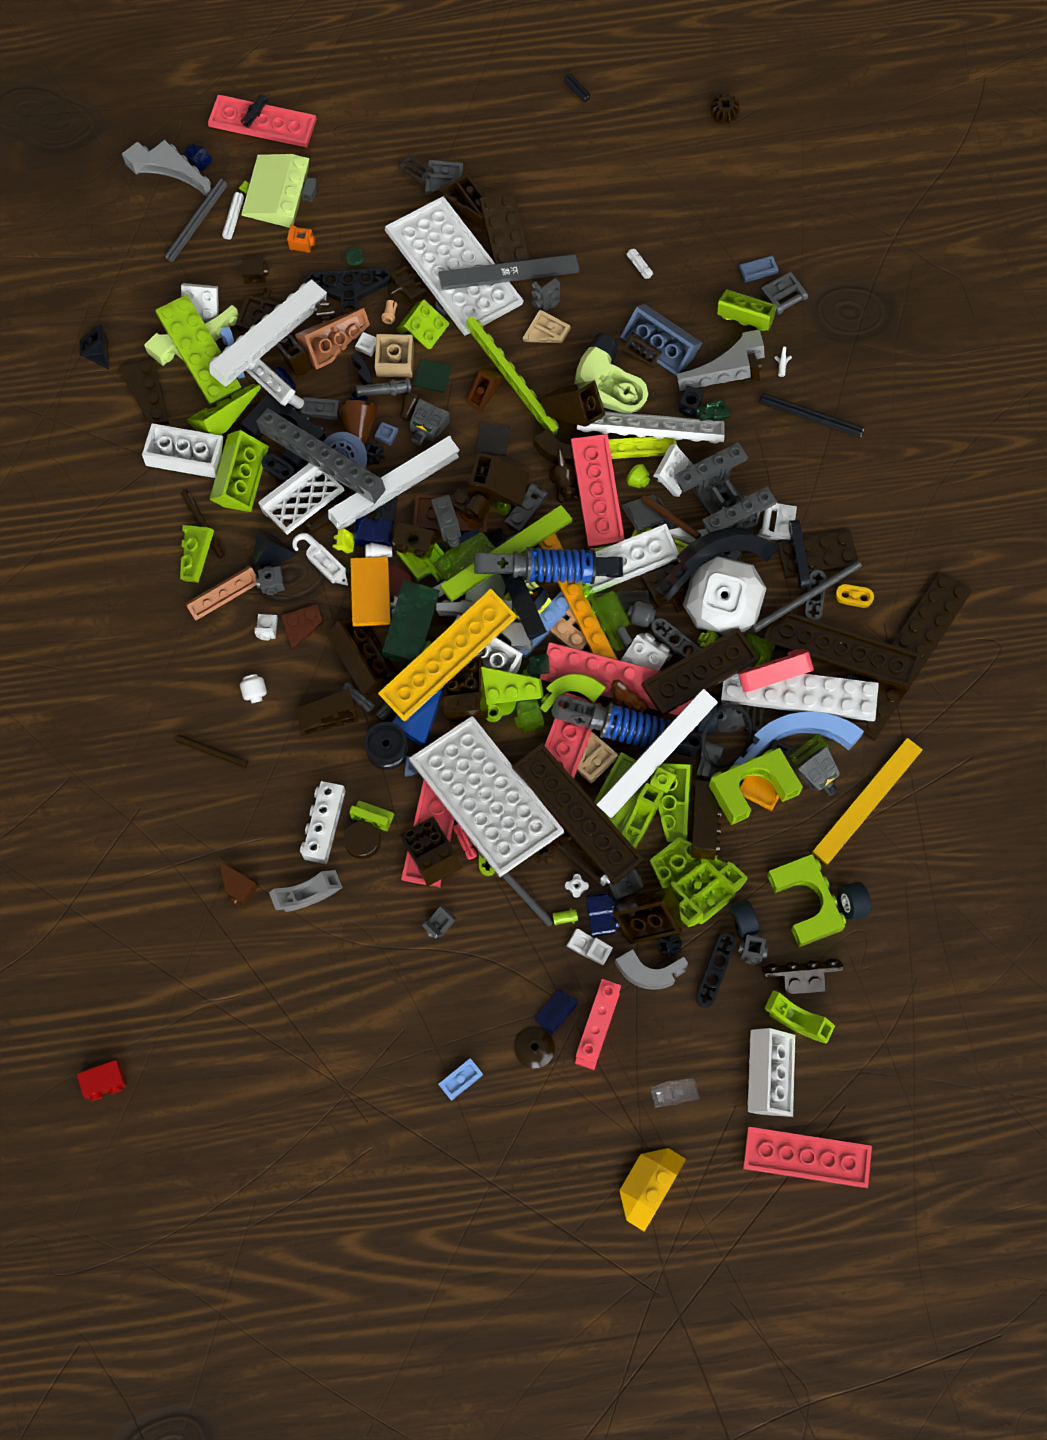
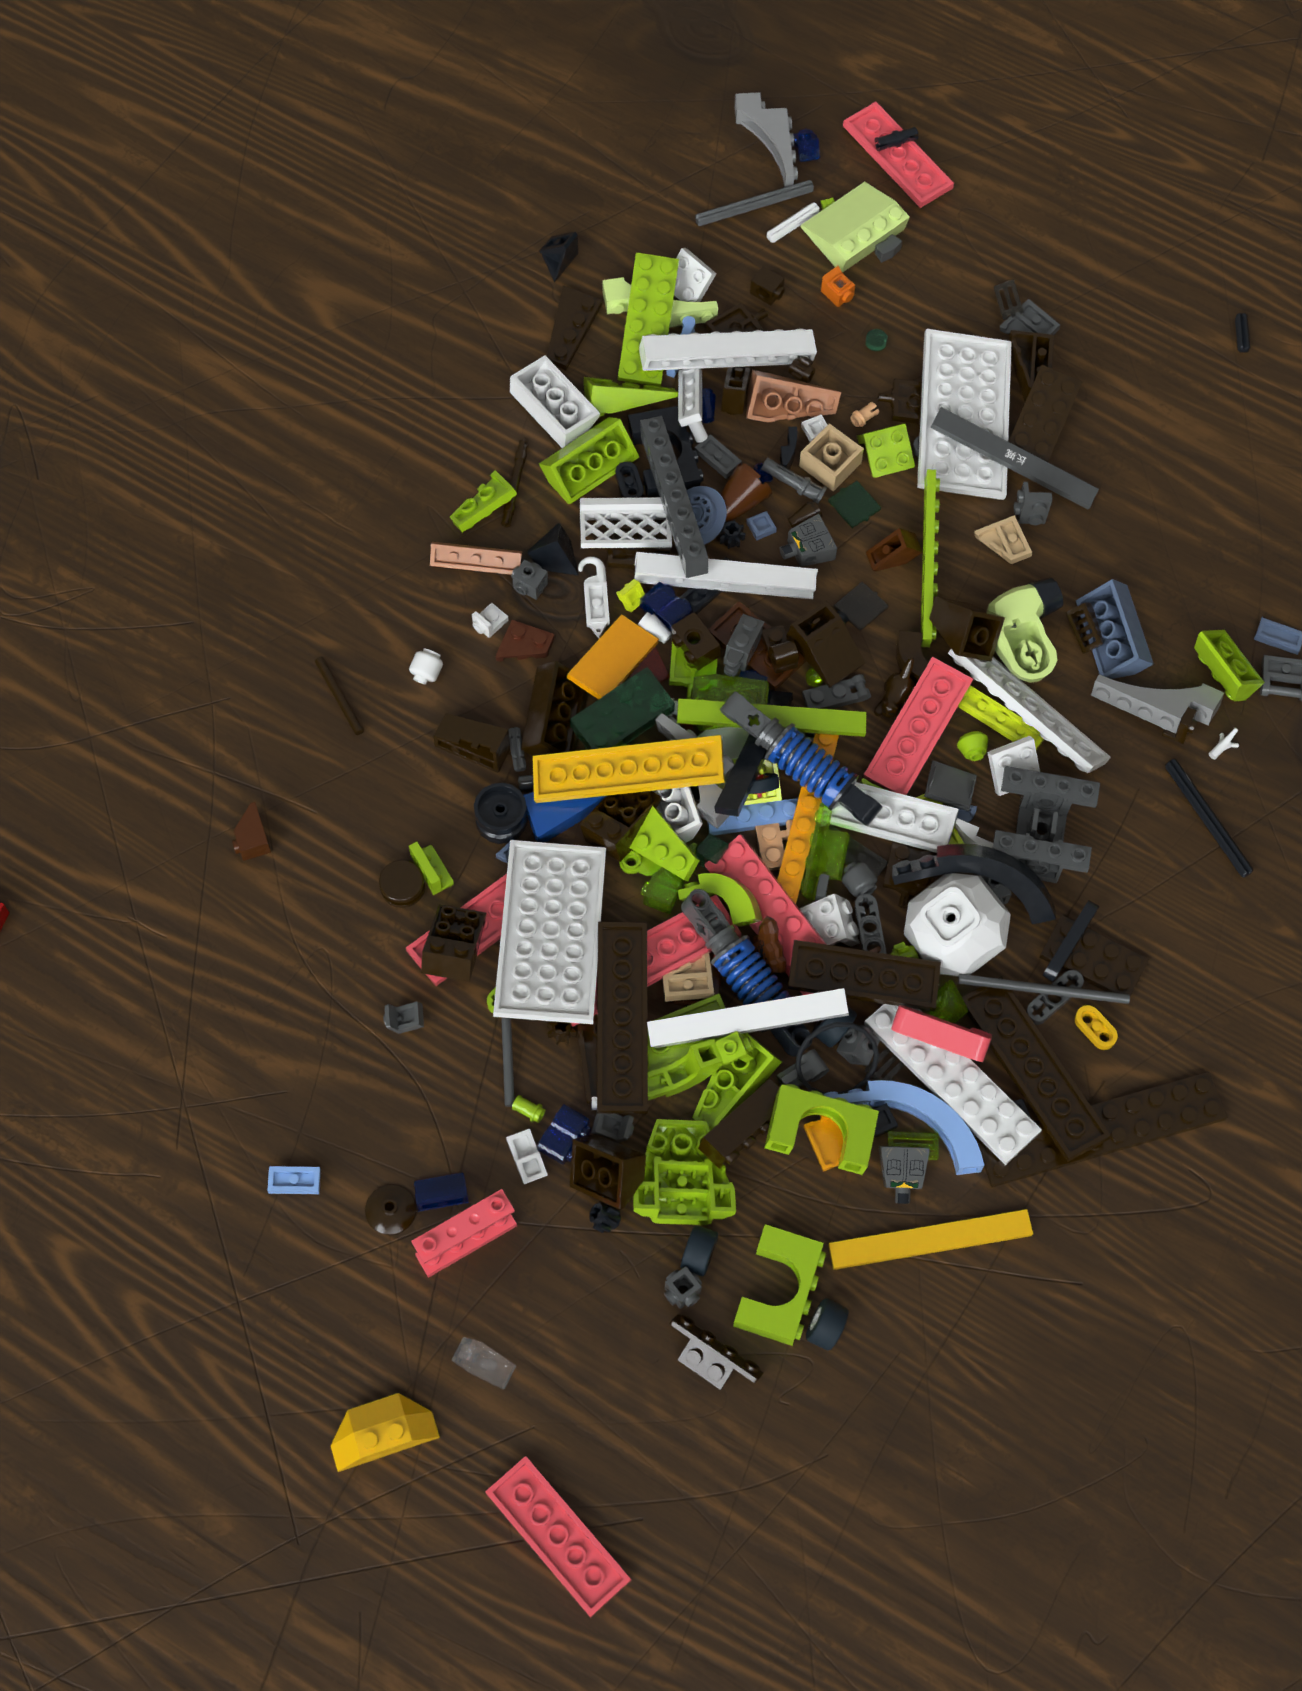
camera: 35 degrees right, 5 degrees down
(307, 893) = (305, 892): light grey arch -> none
(323, 823) = (380, 839): white brick -> none
(357, 286) = (854, 369): black beam -> none
(465, 843) = (491, 976): coral axle -> none
(579, 890) = (571, 1093): white plate -> none
(639, 263) = (1158, 544): white axle -> none
(649, 978) = (556, 1233): light grey arch -> none
(671, 517) = (970, 806): reddish brown bar -> none
(694, 395) = (1096, 705): black brick -> none
(716, 410) = (1109, 739): clear green plate -> none
(719, 971) = (631, 1282): black beam -> none
(771, 1072) = (595, 1423): white slope -> none
(781, 530) = (1094, 891): white plate -> none
(798, 1019) = (666, 1391): lime arch -> none

